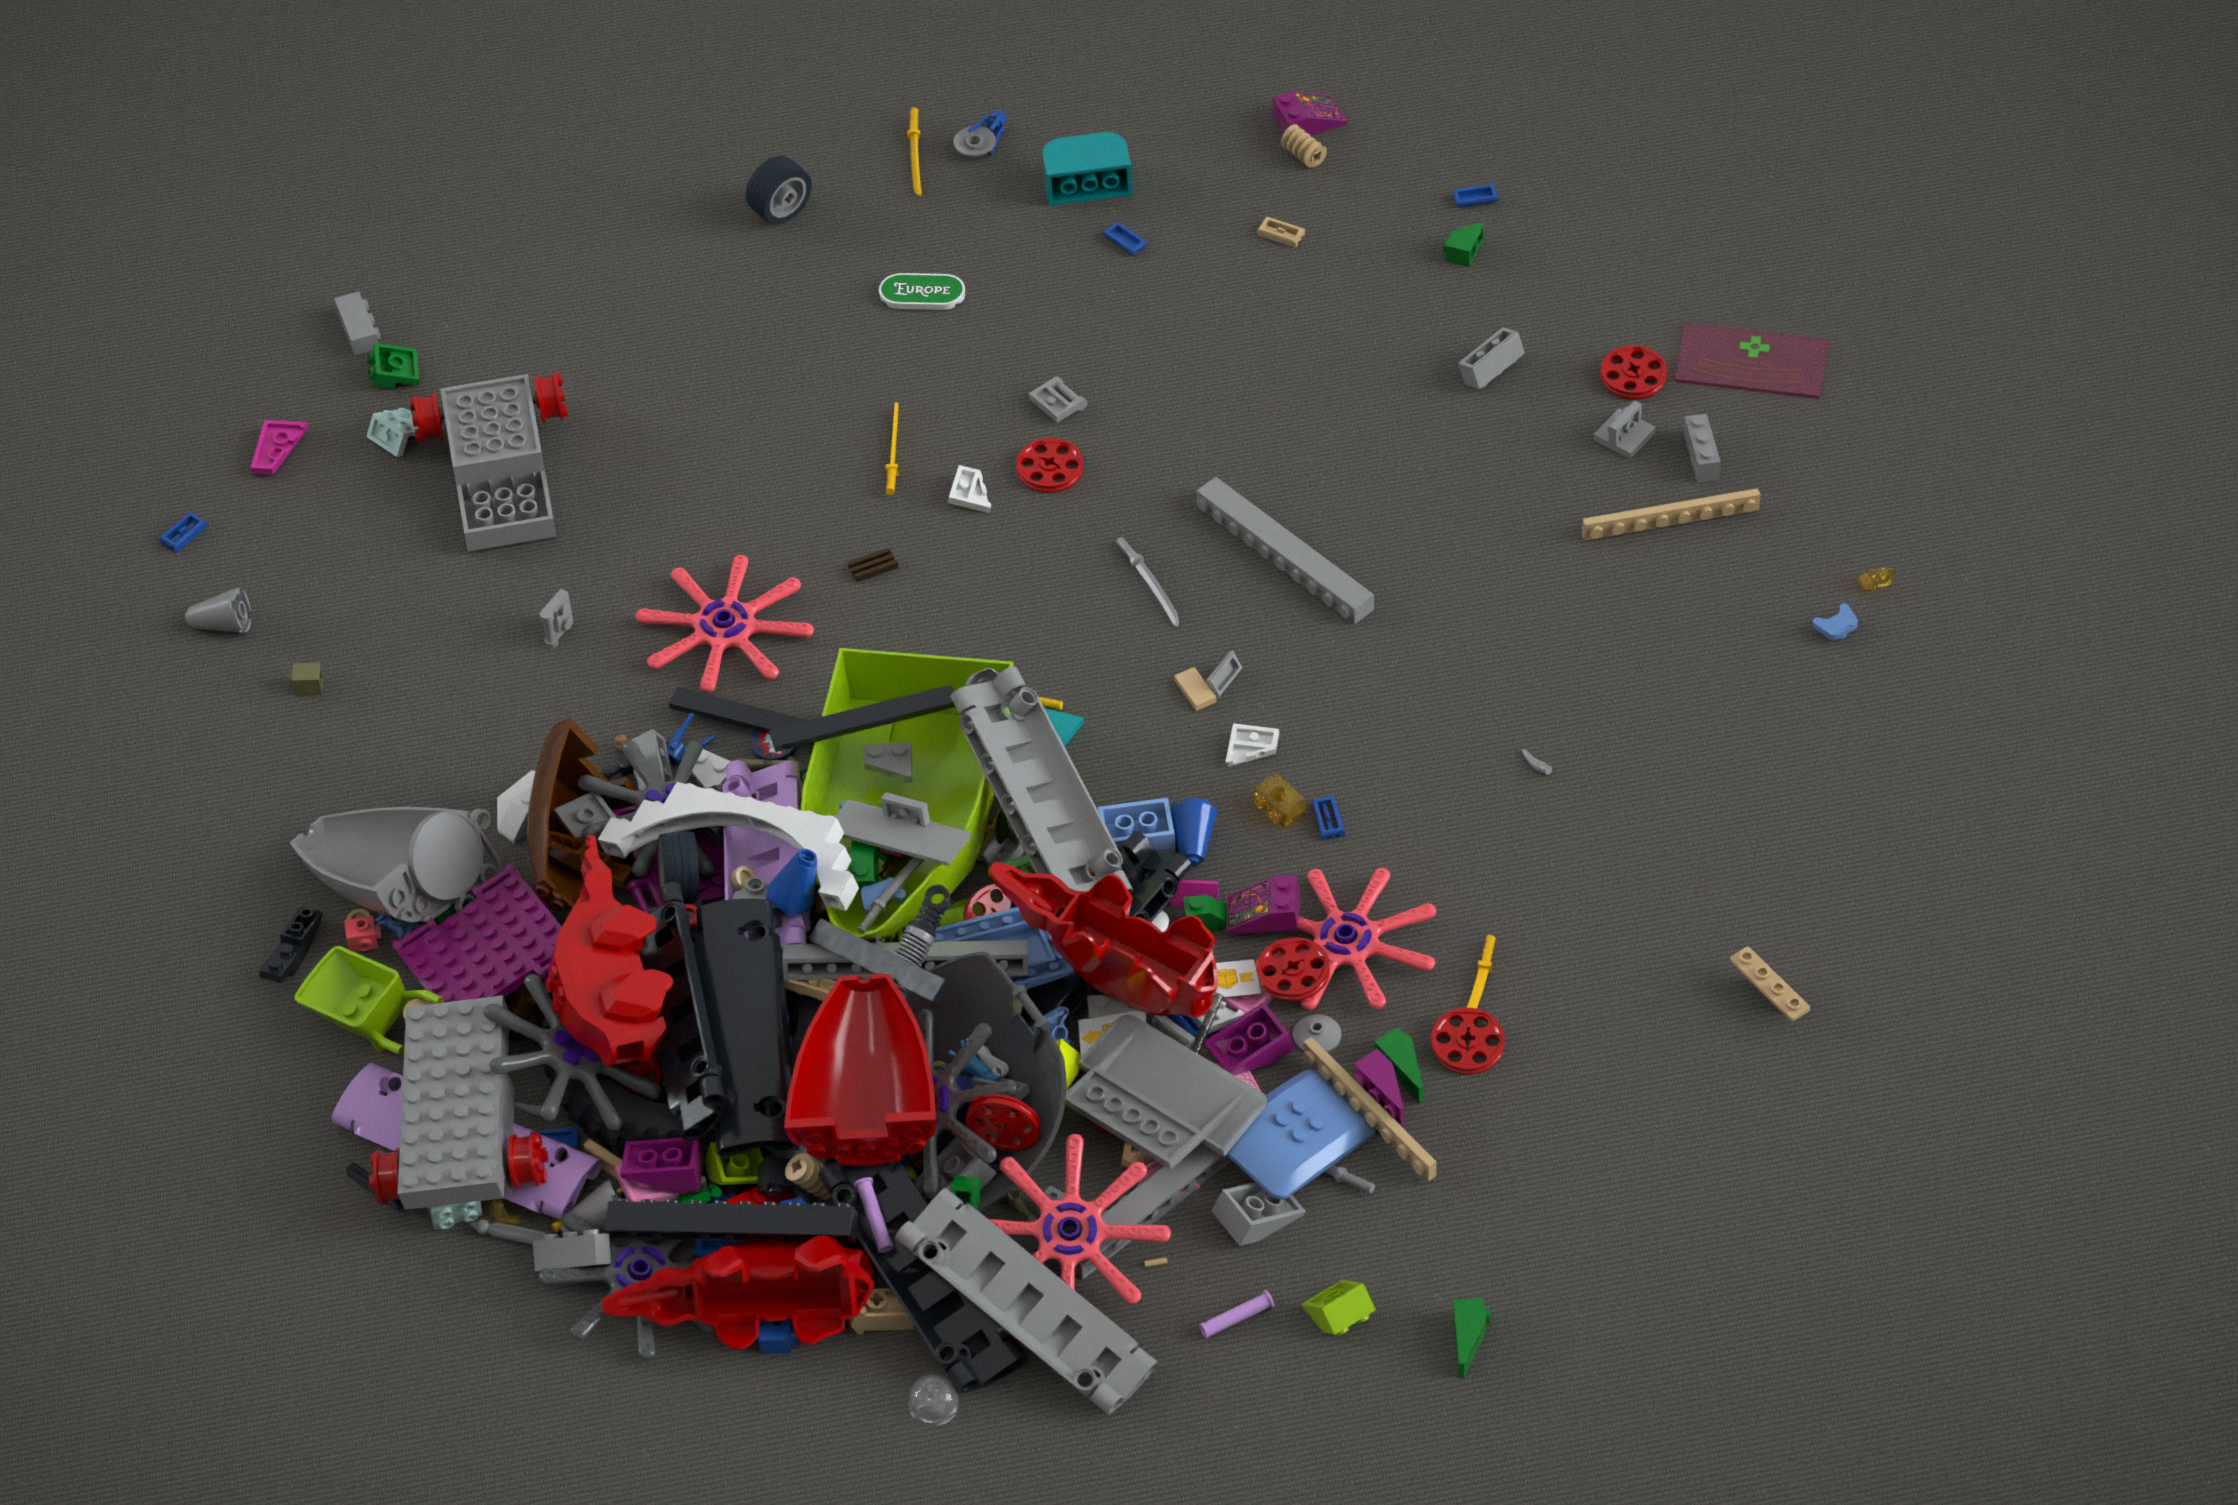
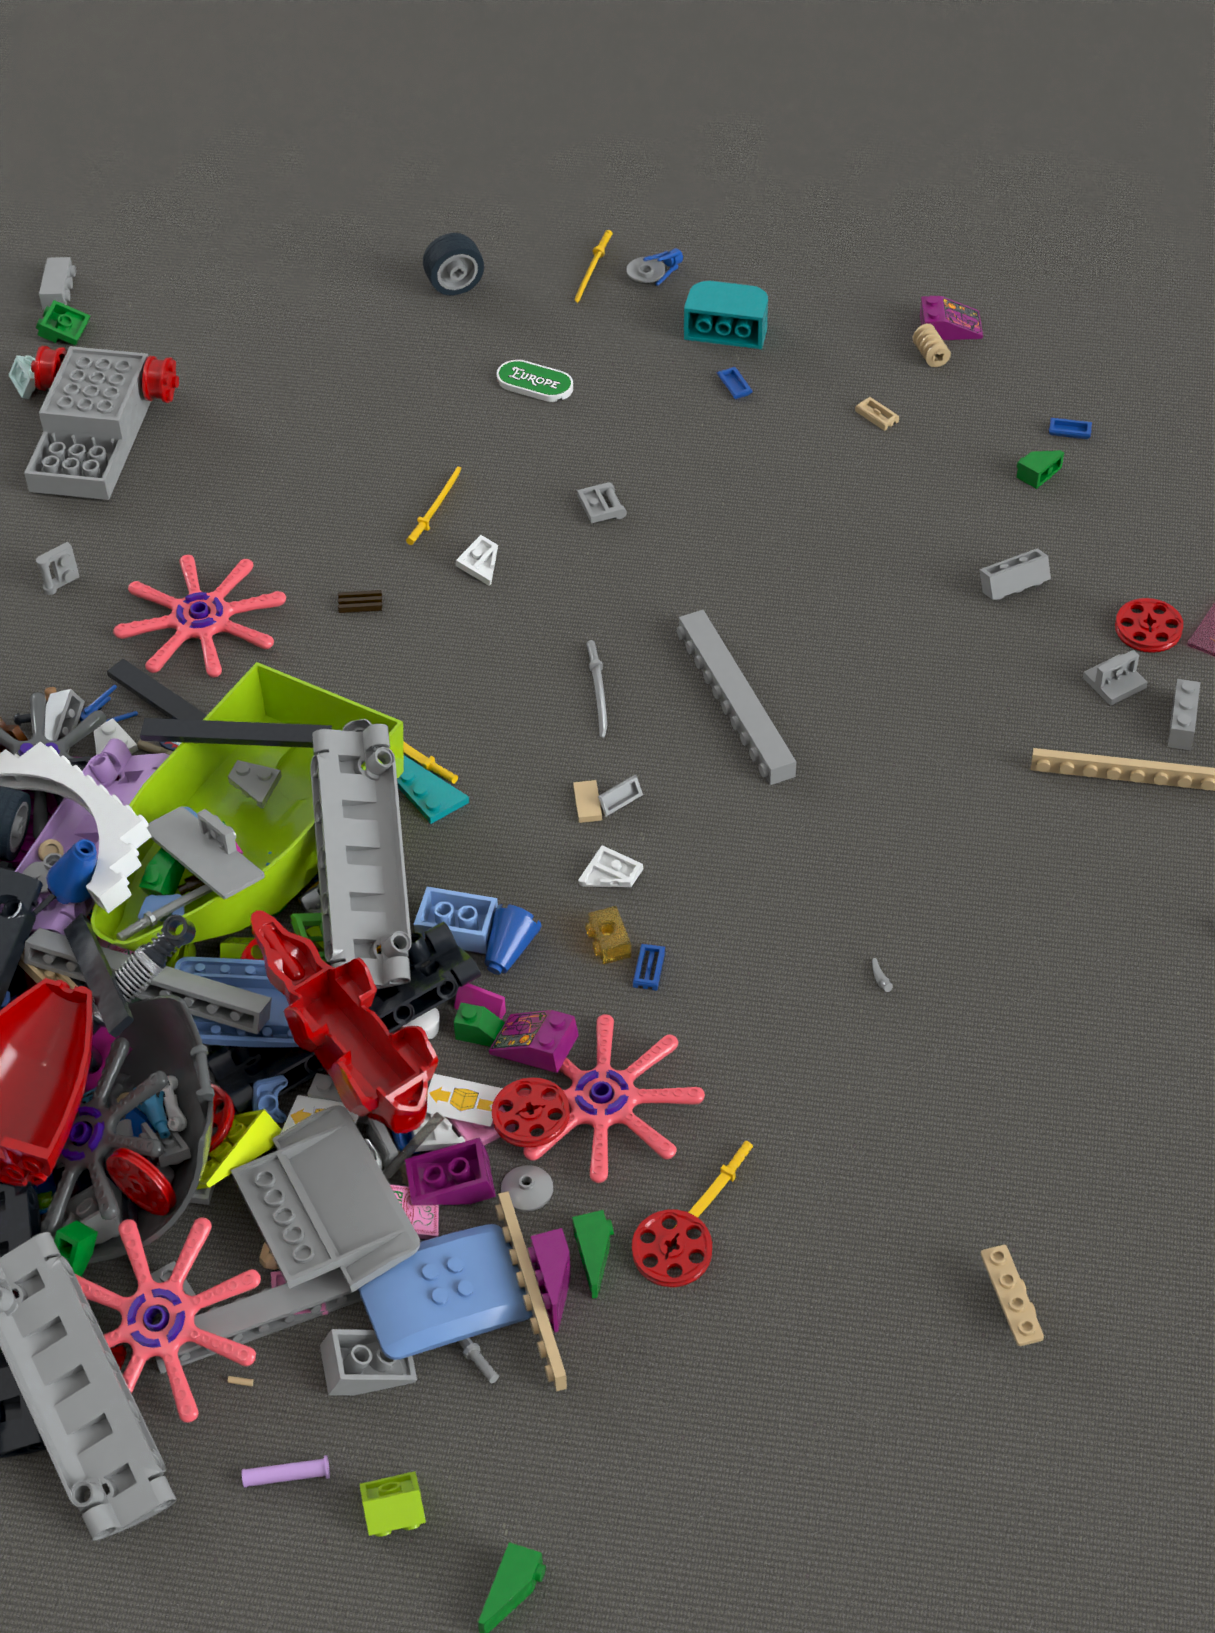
camera: 20 degrees right, 0 degrees up
(1049, 472) = (562, 564): red wedge -> none

